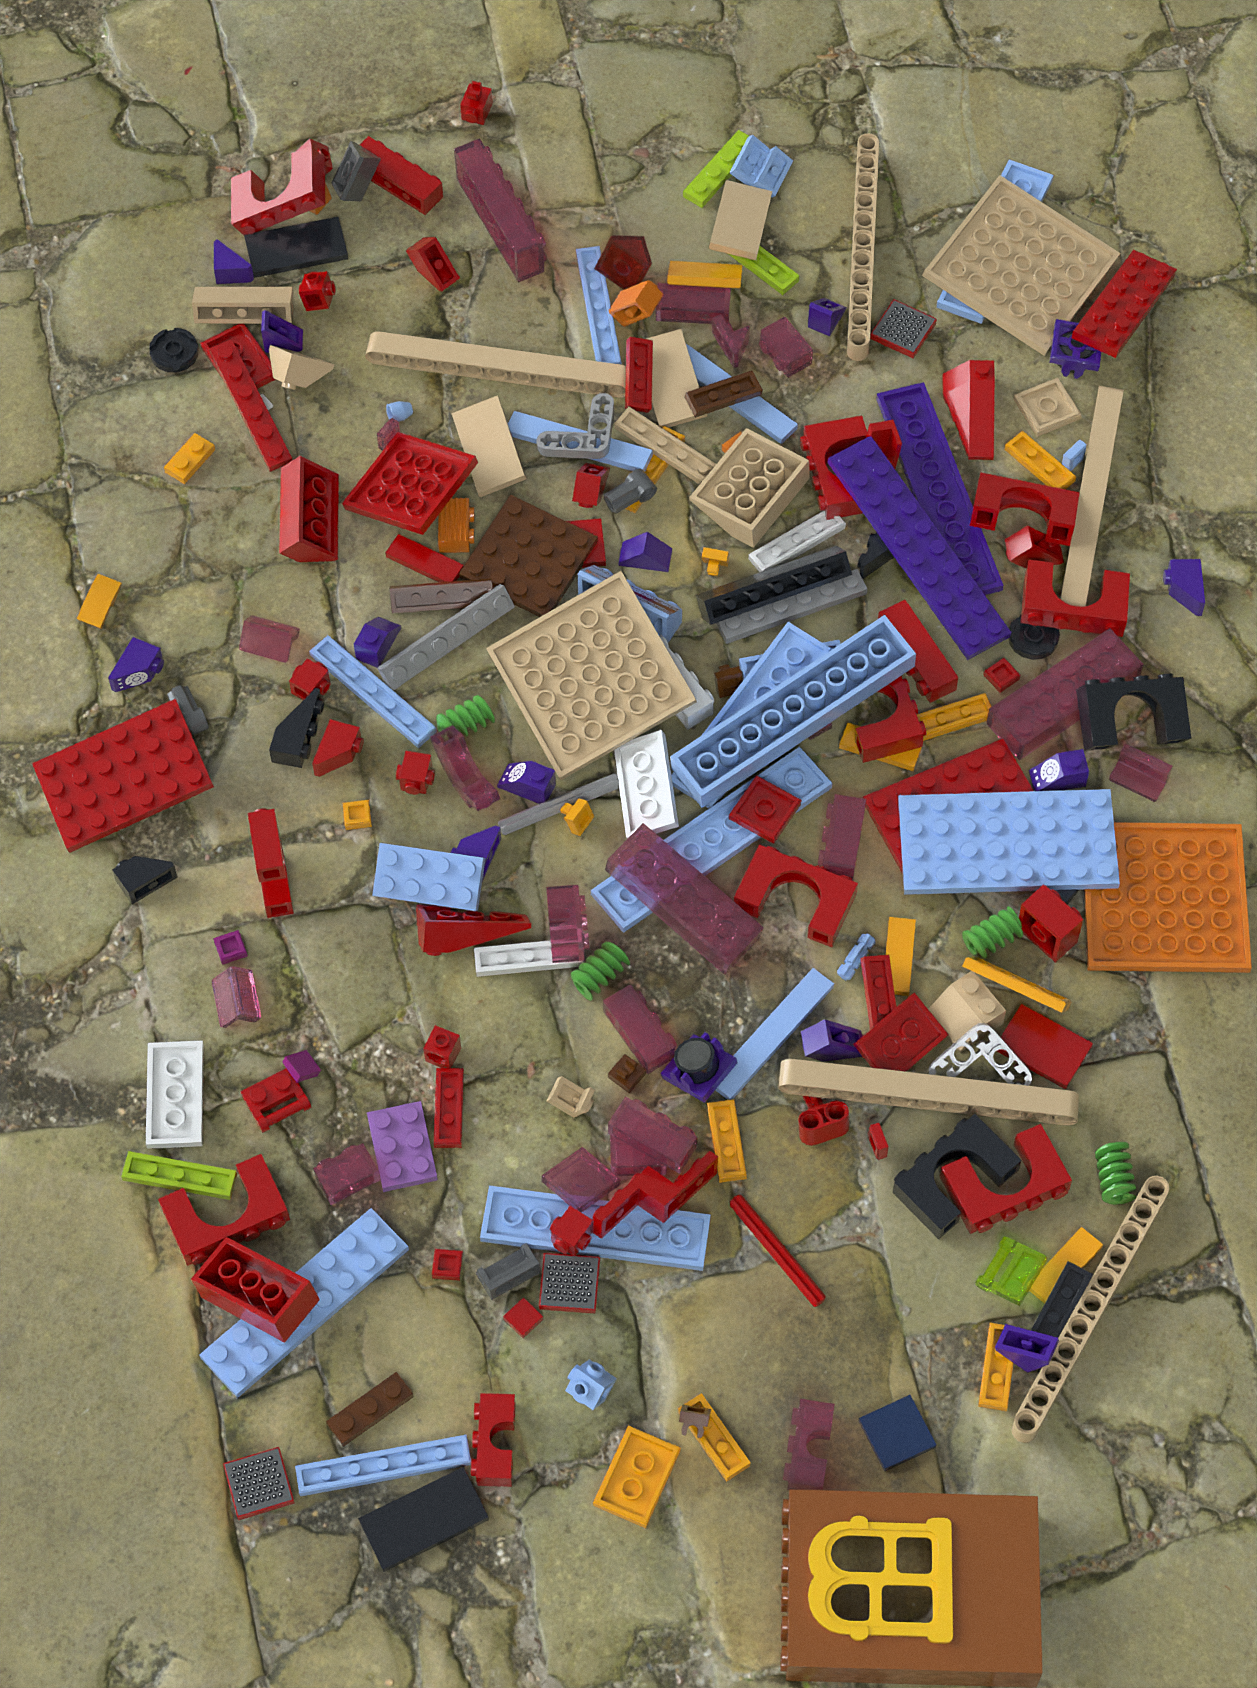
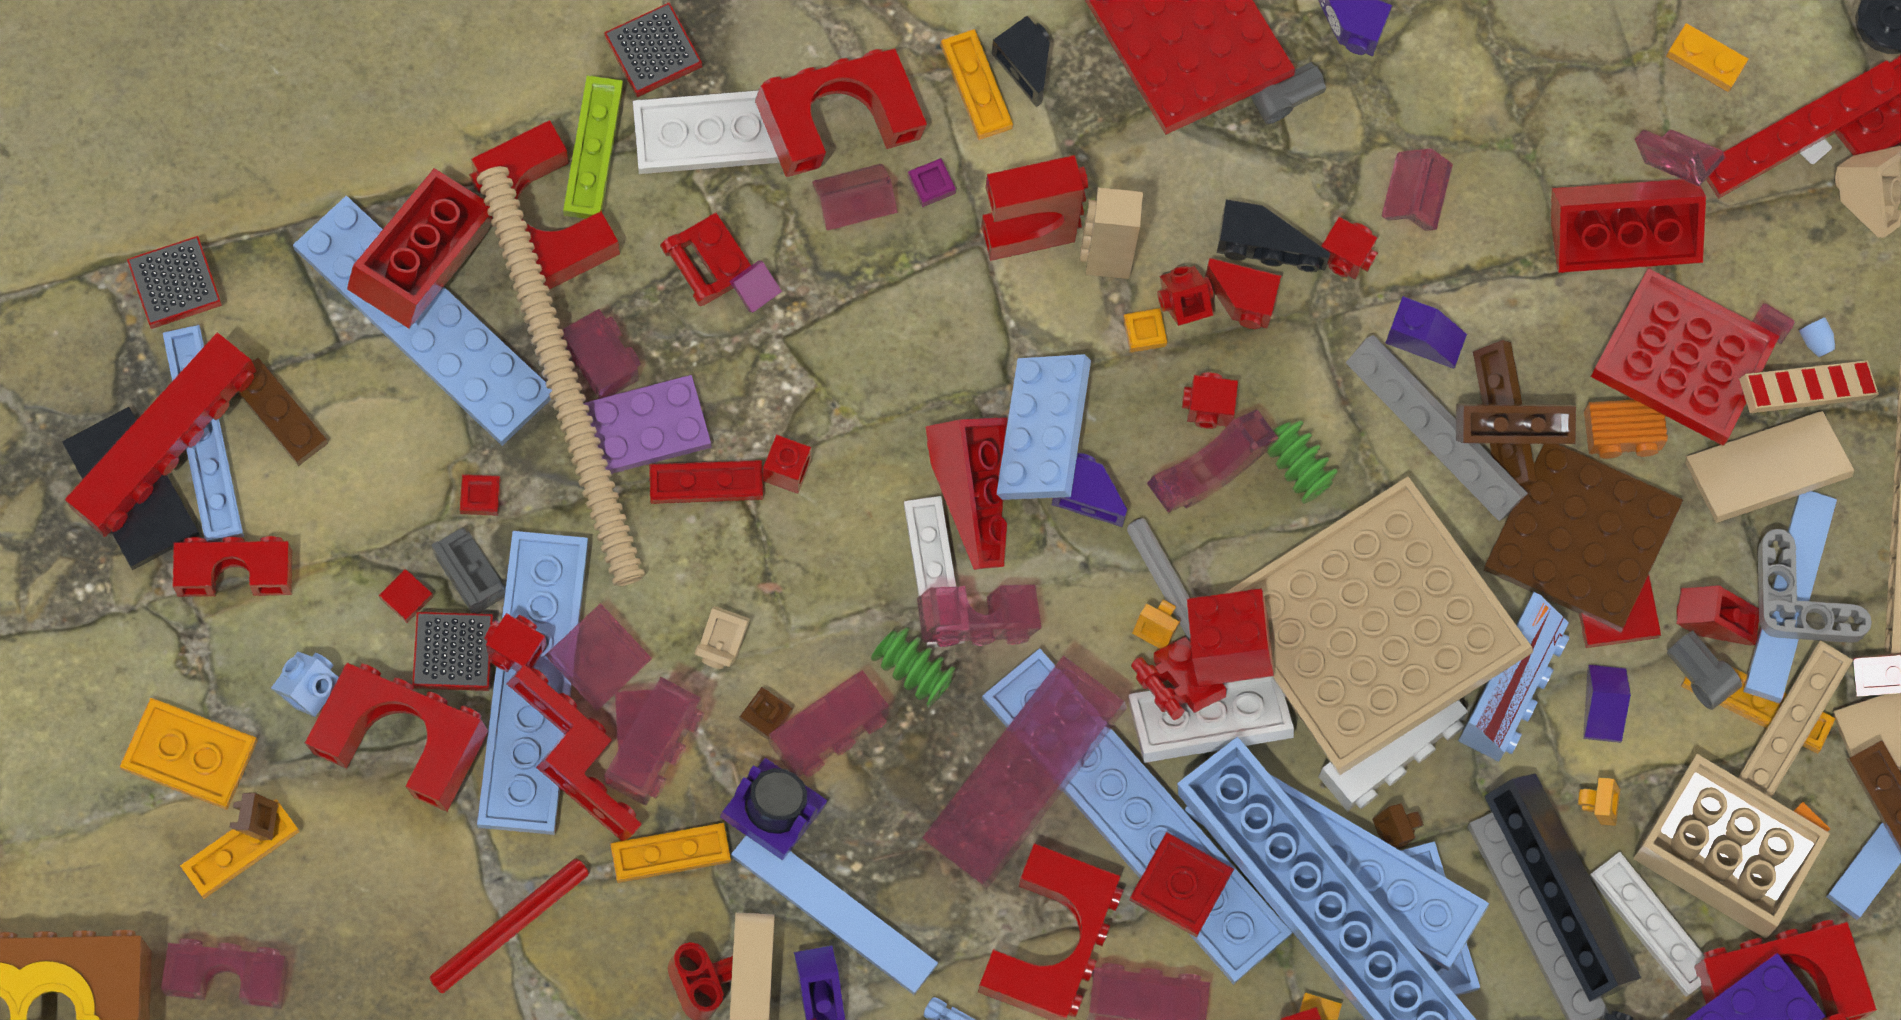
camera: 80 degrees right, 10 degrees up
(104, 1130) = (653, 49): none -> tile
(156, 914) = (976, 84): none -> light orange tile
(168, 1030) = (873, 79): none -> red arch
(263, 475) = (1679, 155): none -> clear pink panel
(295, 811) = (1111, 232): none -> tan brick
(337, 781) = (1185, 295): none -> red brick
(362, 1196) = (560, 376): none -> tan piece
(373, 691) = (1343, 336): light blue tile -> none
(388, 1486) = (161, 435): none -> red brick
(423, 560) = (1573, 373): red tile -> none
(437, 415) = (1808, 386): none -> tile
(456, 577) = (1516, 423): none -> reddish brown brick
(528, 781) = (1209, 555): dark purple slope -> none
(596, 760) = (1230, 637): none -> red brick
(616, 797) = (1176, 666): none -> red plate
(635, 1279) = (365, 697): none -> red arch

